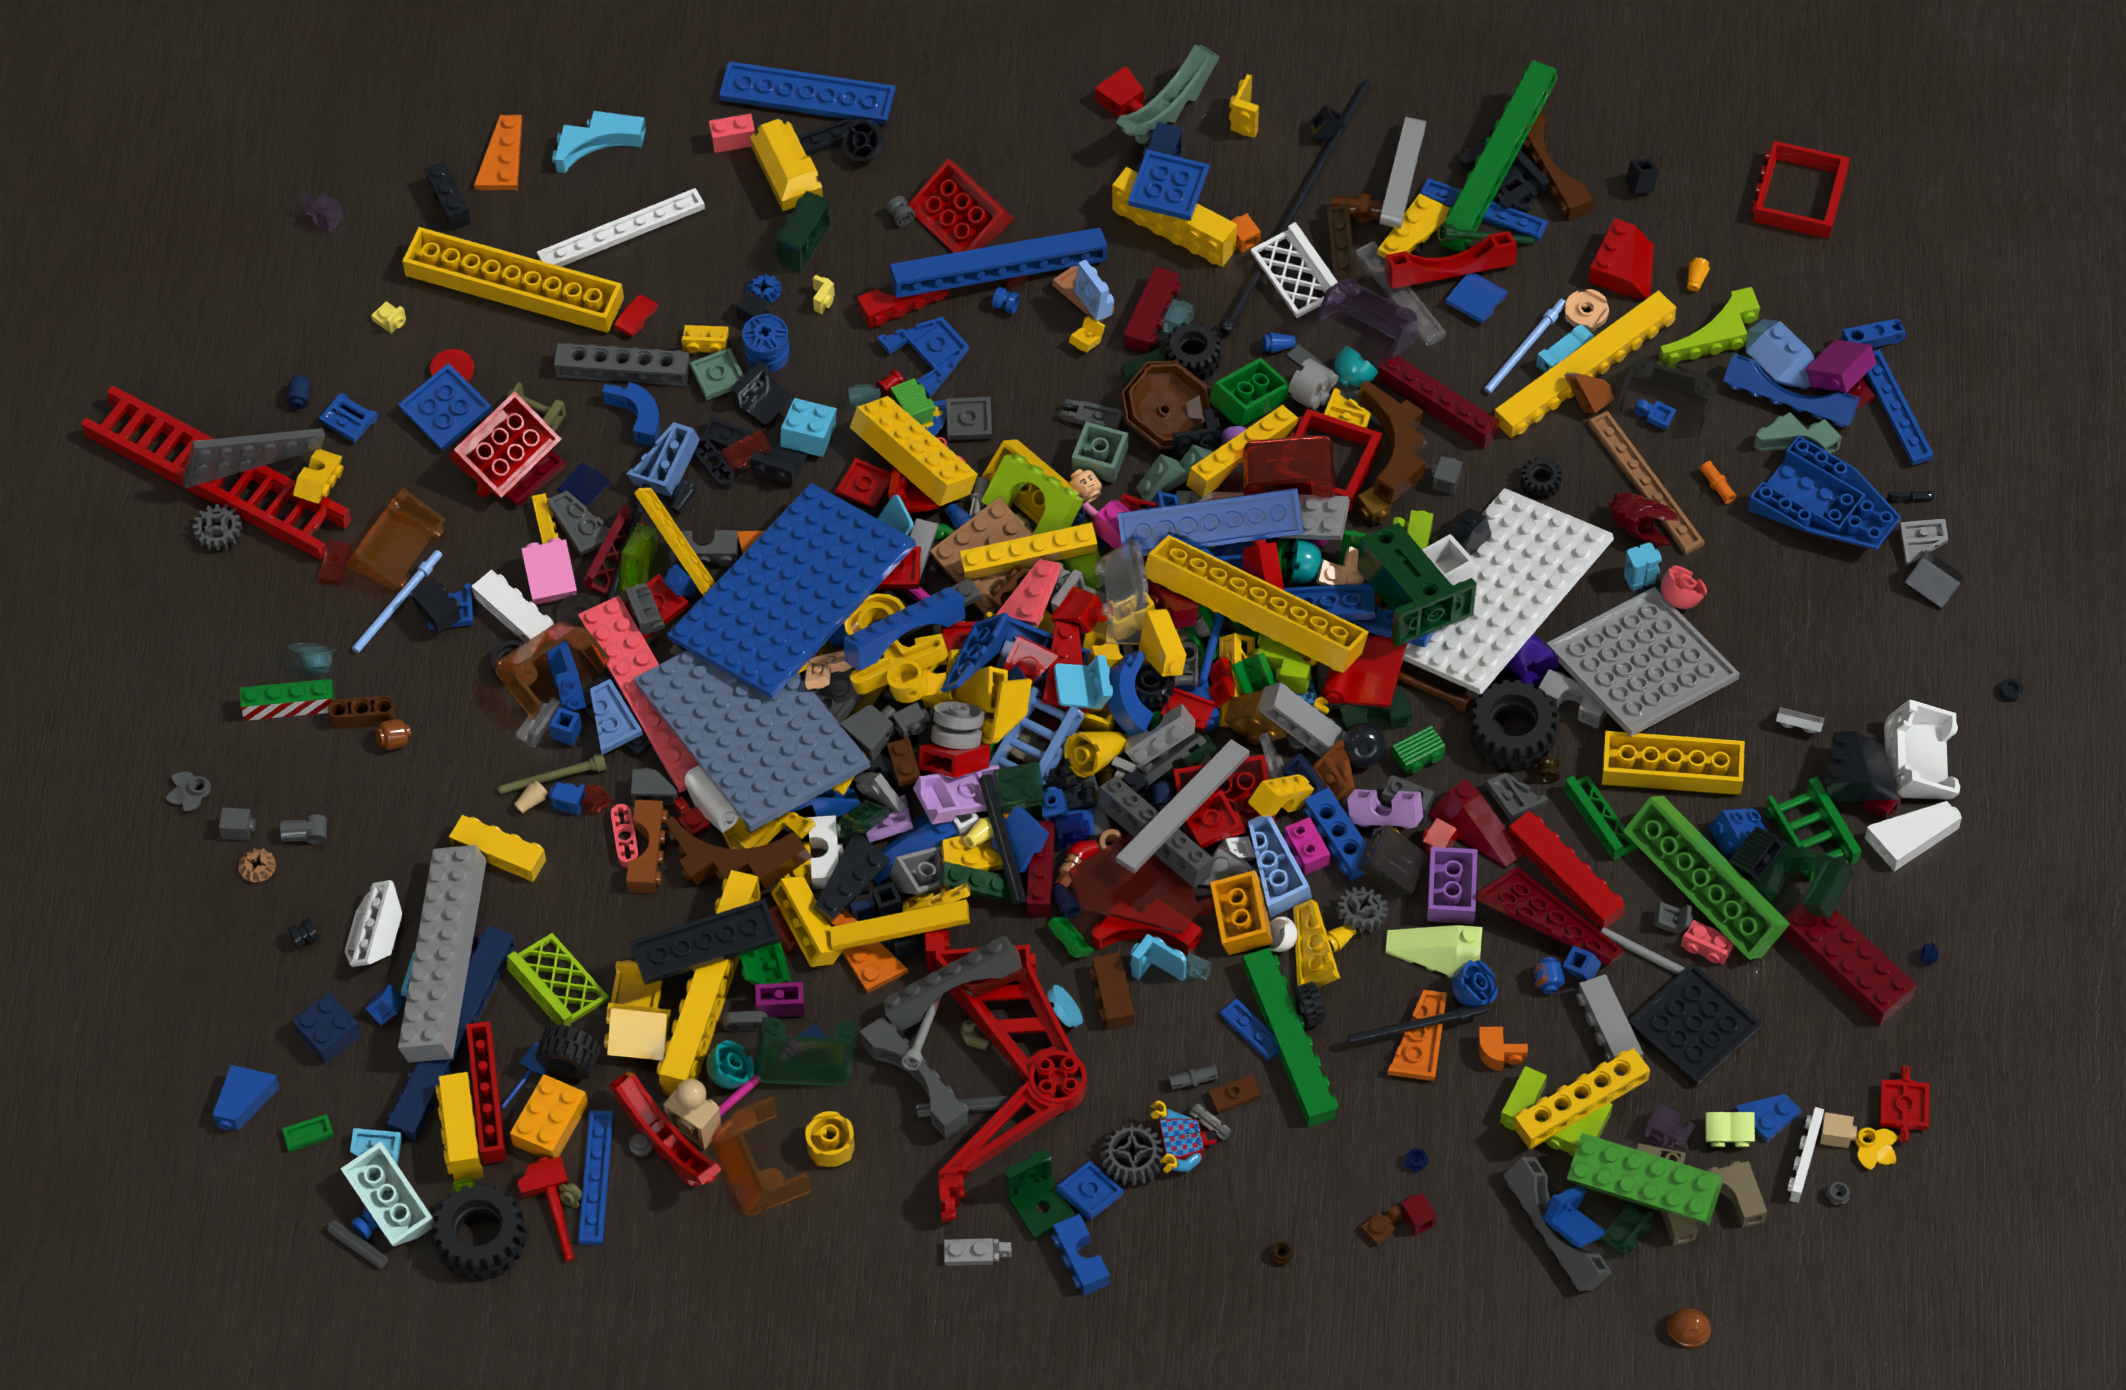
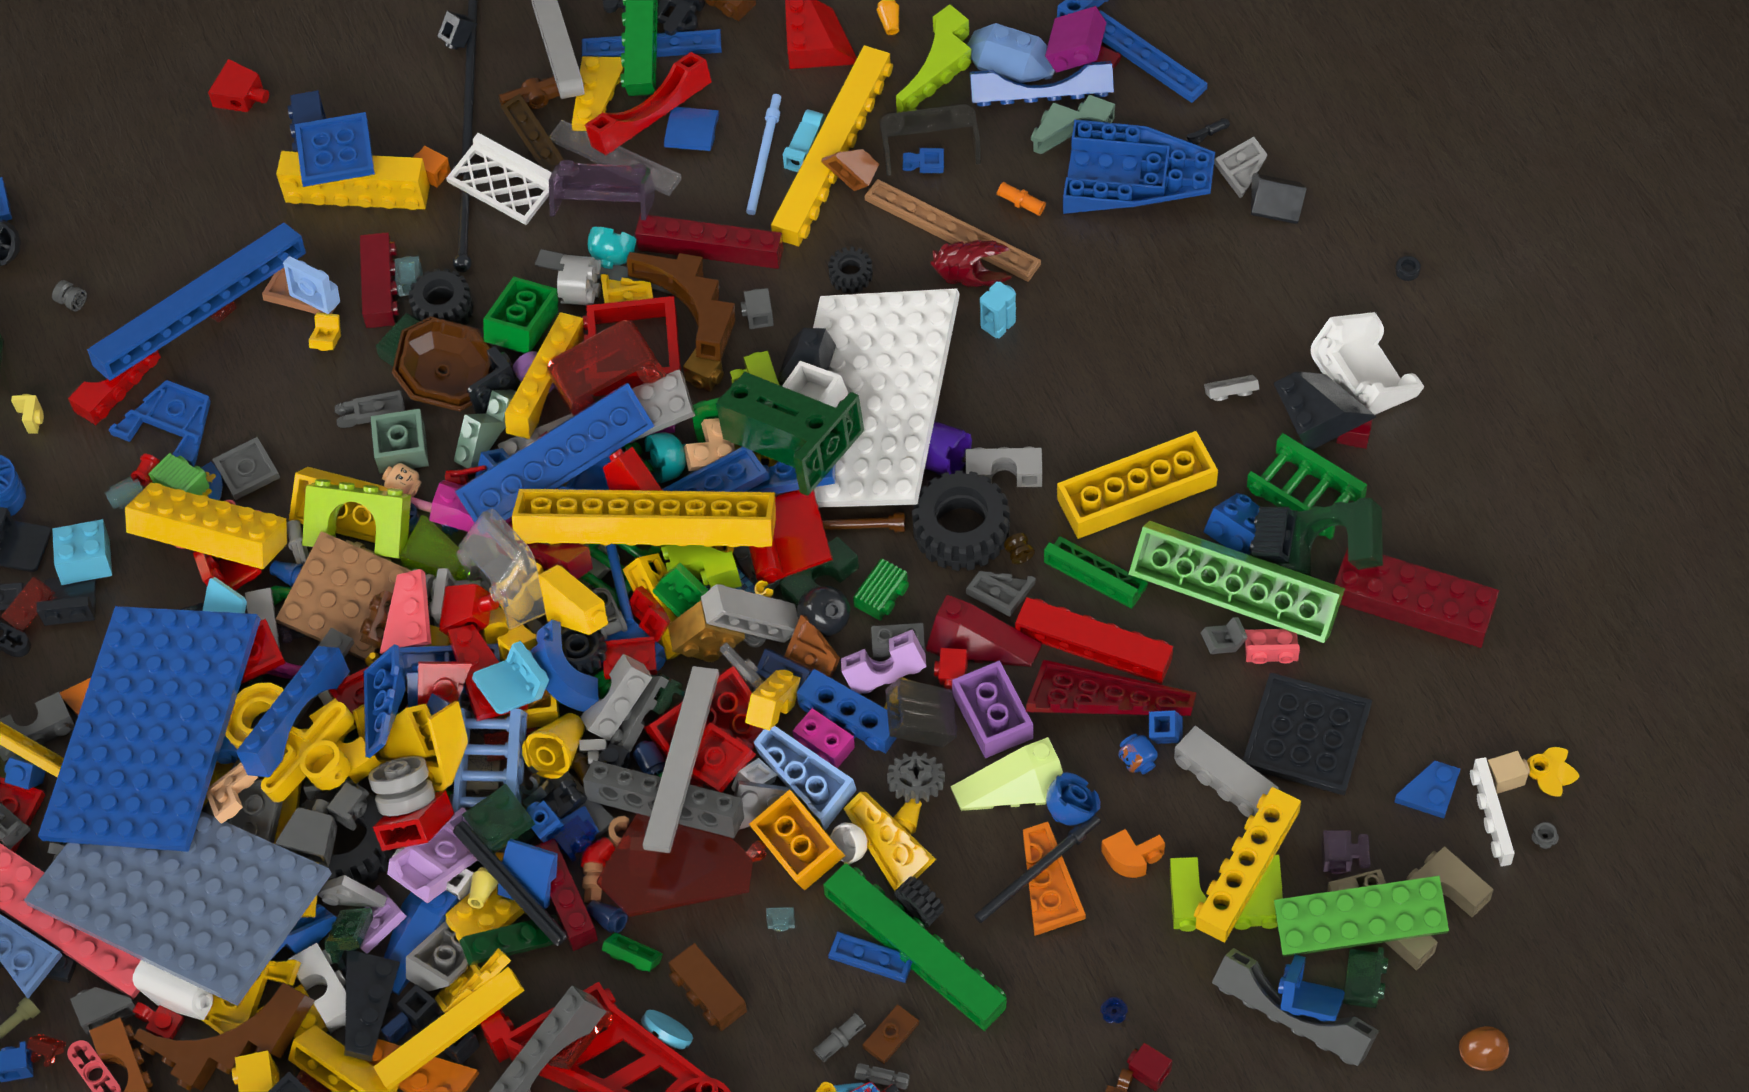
camera: 25 degrees left, 0 degrees up
(864, 484) = (171, 583): red plate -> none
(903, 761) = (363, 851): reddish brown plate -> none
(959, 209) = (129, 268): red slope -> none
(1006, 300) = (223, 335): blue wheel -> none
(1027, 551) = (379, 572): yellow brick -> none
(1117, 930) = (676, 920): red arch -> none
(1157, 952) = (736, 924): medium azure bracket -> none
(1170, 101) = (291, 70): sand green arch -> none
(1243, 113) = (371, 53): yellow bracket -> none
(1277, 342) = (519, 256): blue cone -> none
(1449, 233) = (635, 77): dark green piece -> none
(1589, 298) = (794, 87): light nougat plate -> none
(1642, 661) = (1052, 400): light grey plate -> none
(1644, 952) = (1216, 685): light grey bar -> none
(1681, 589) = (1048, 315): coral cylinder -> none
(1729, 1128) = (1404, 821): yellowish green brick -> none
(1904, 1104) = (1554, 714): red plate -> none
(1911, 834) = (1400, 447): white slope -> none
(1929, 953) = (1486, 554): clear blue plate -> none

